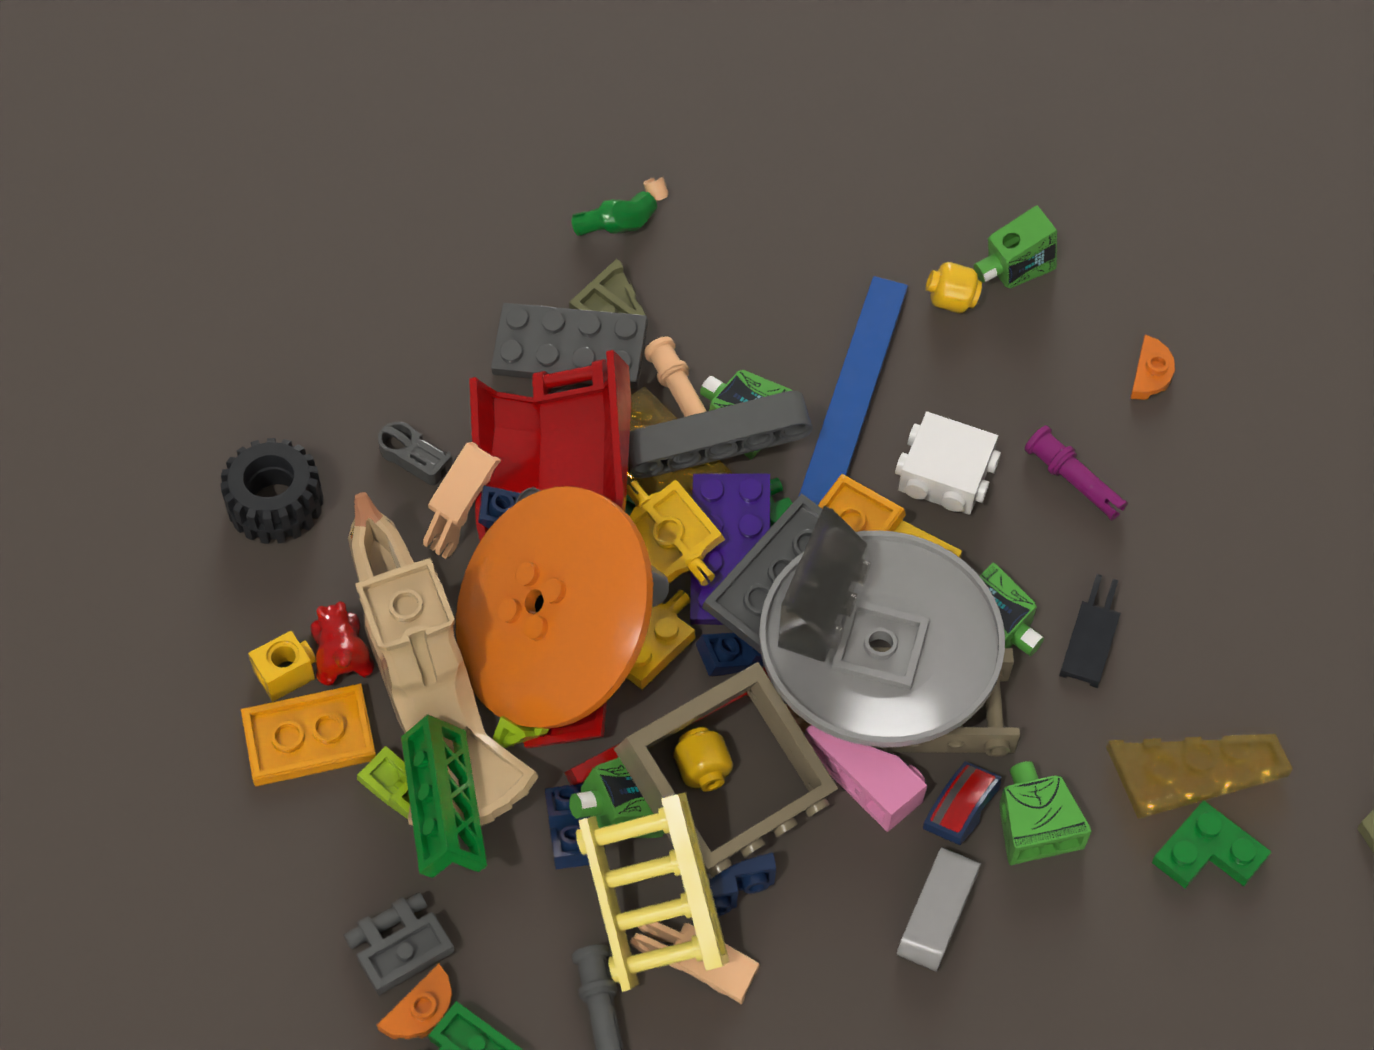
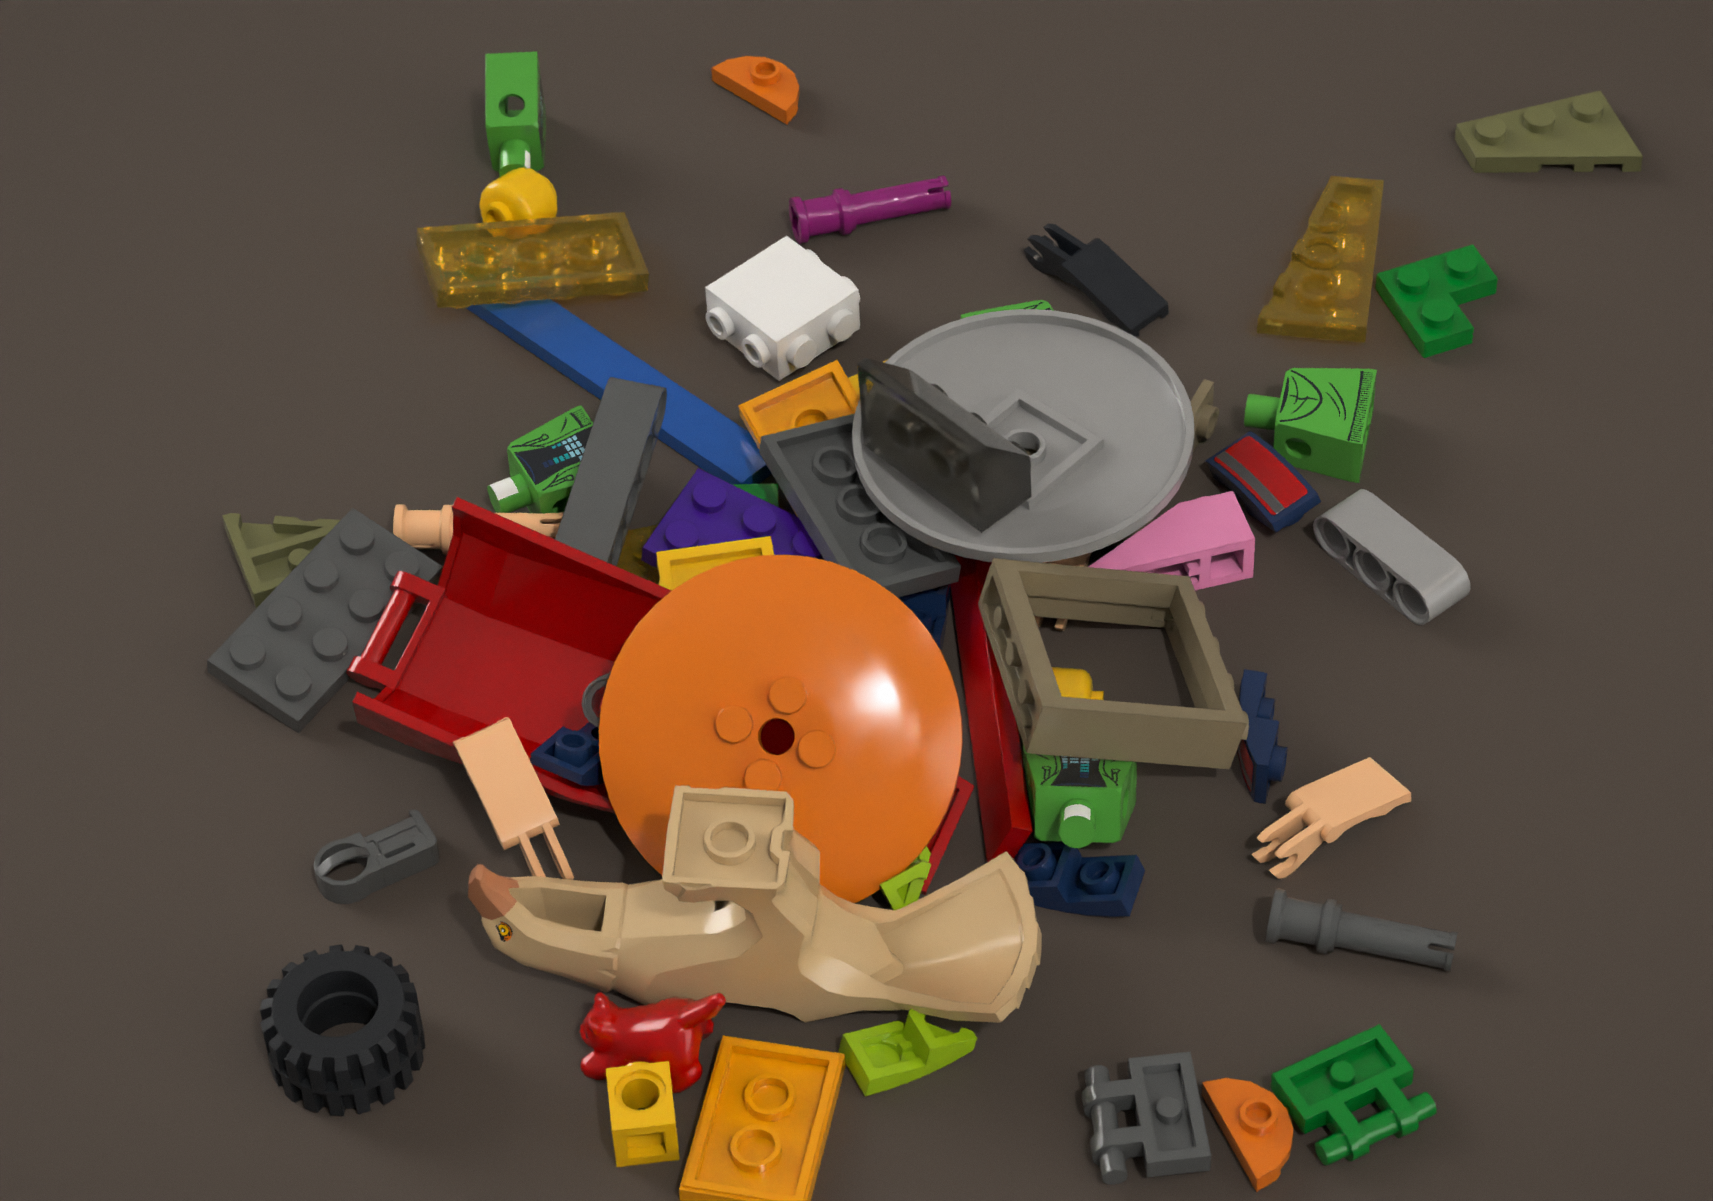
camera: 60 degrees left, 10 degrees down
(432, 797) = (989, 962): green fence -> none
(622, 215) = (146, 489): green arm -> none
(694, 903) = (1290, 748): light yellow fence -> none
(907, 314) = (531, 260): none -> clear yellow plate

